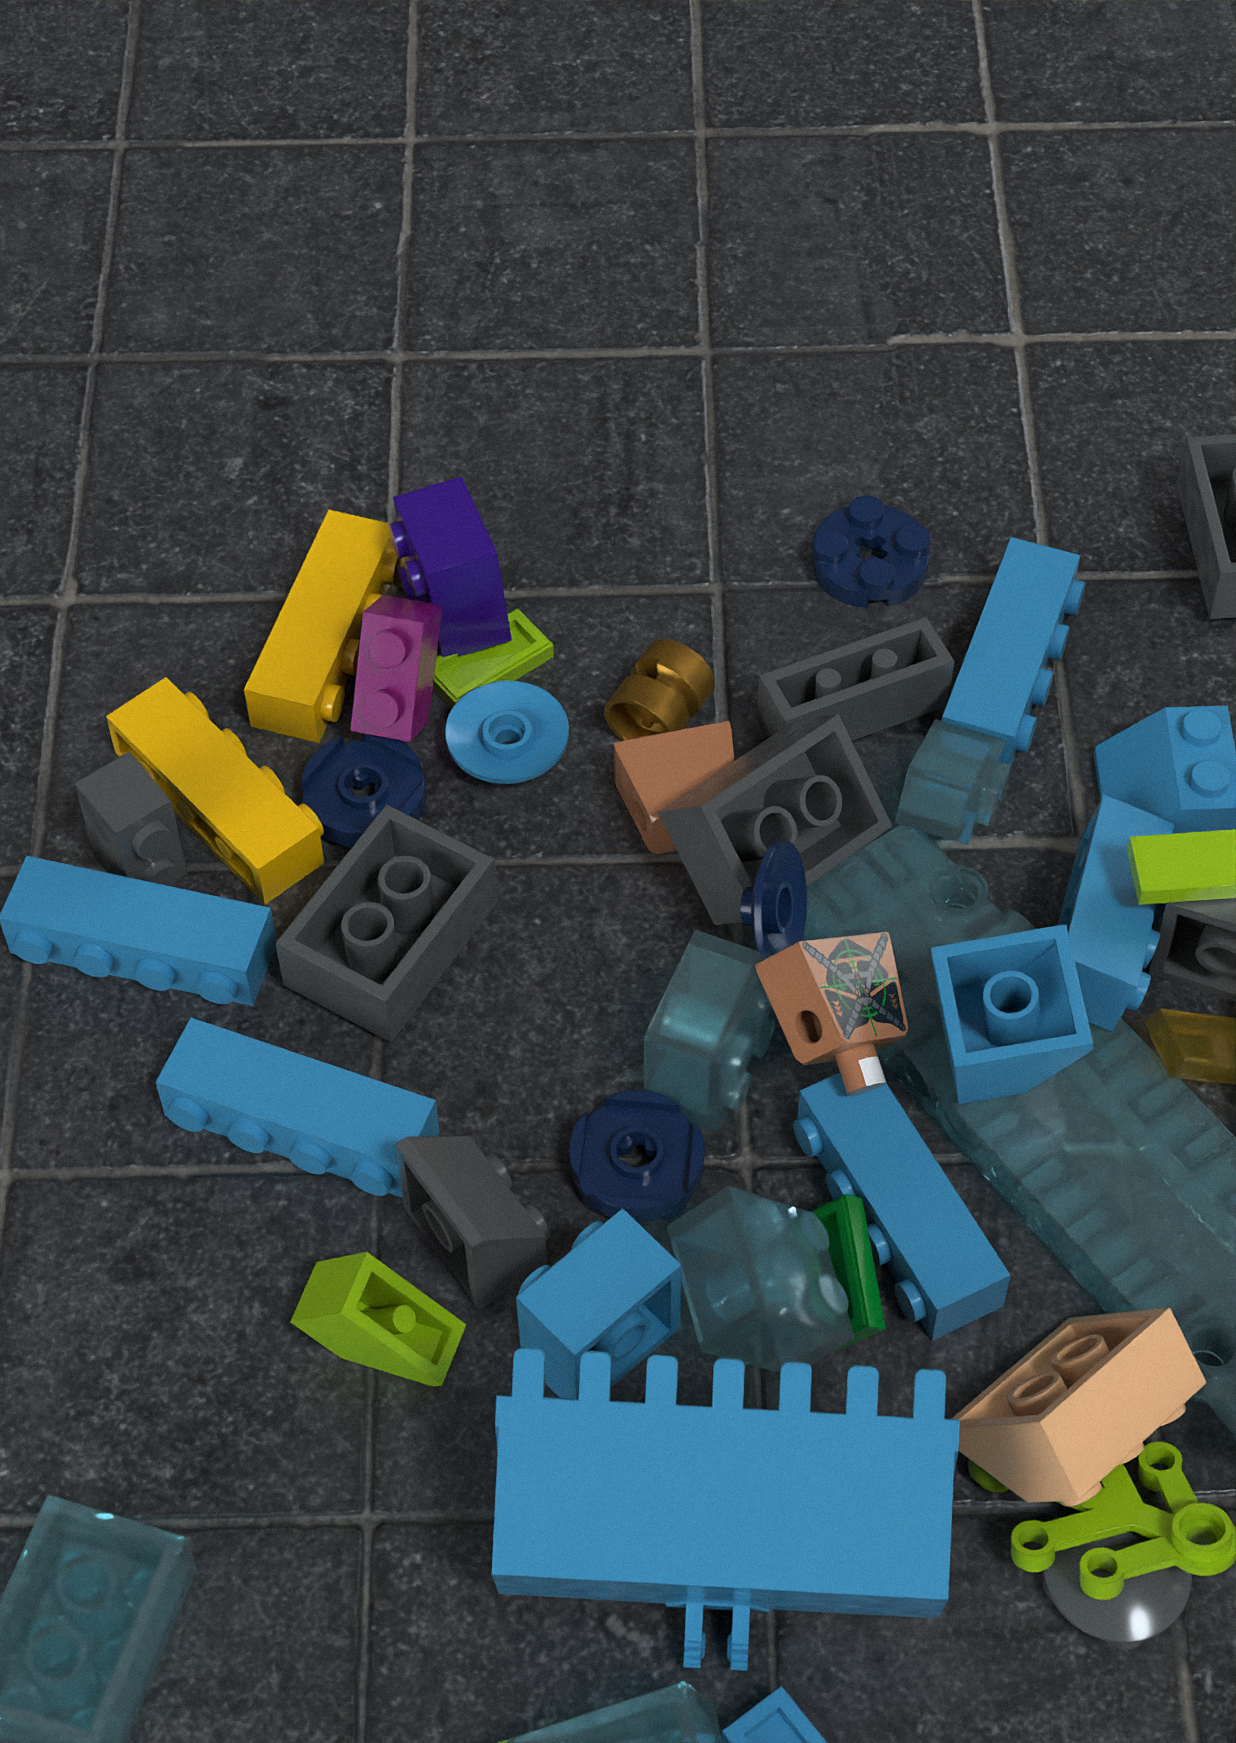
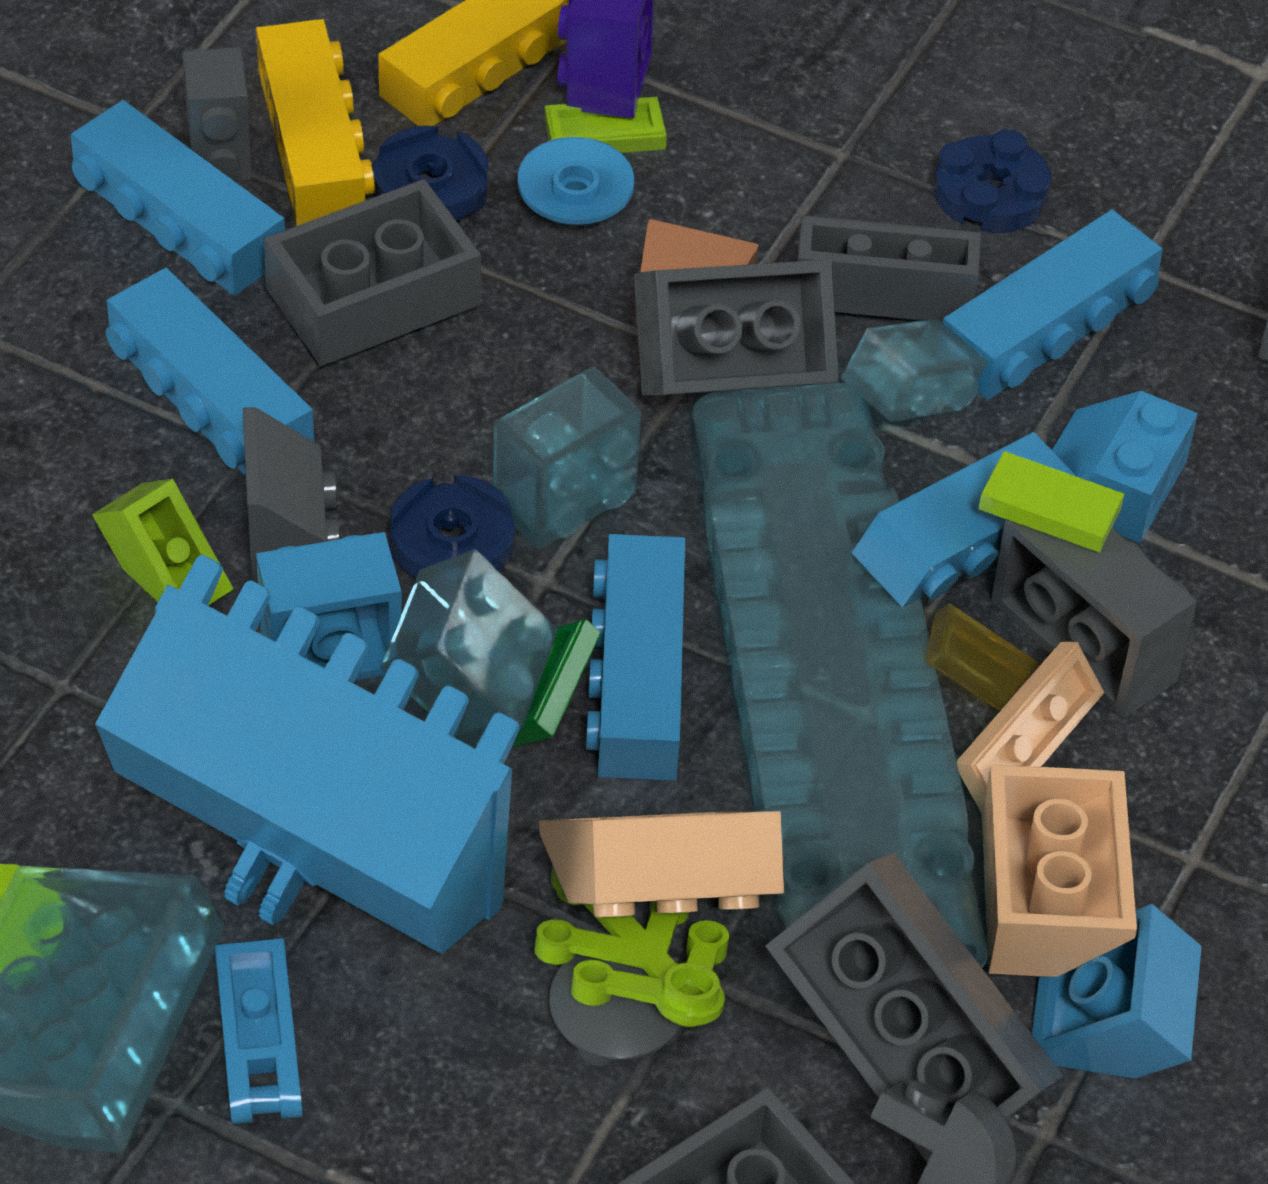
camera: 25 degrees right, 5 degrees down
(396, 667) = (510, 87): magenta brick -> none
(661, 693) = (724, 203): pearl gold wheel -> none
(777, 900) = (680, 383): dark blue dish -> none
(838, 1003) = (675, 472): nougat torso -> none
(1010, 1011) = (801, 536): dark azure slope -> none

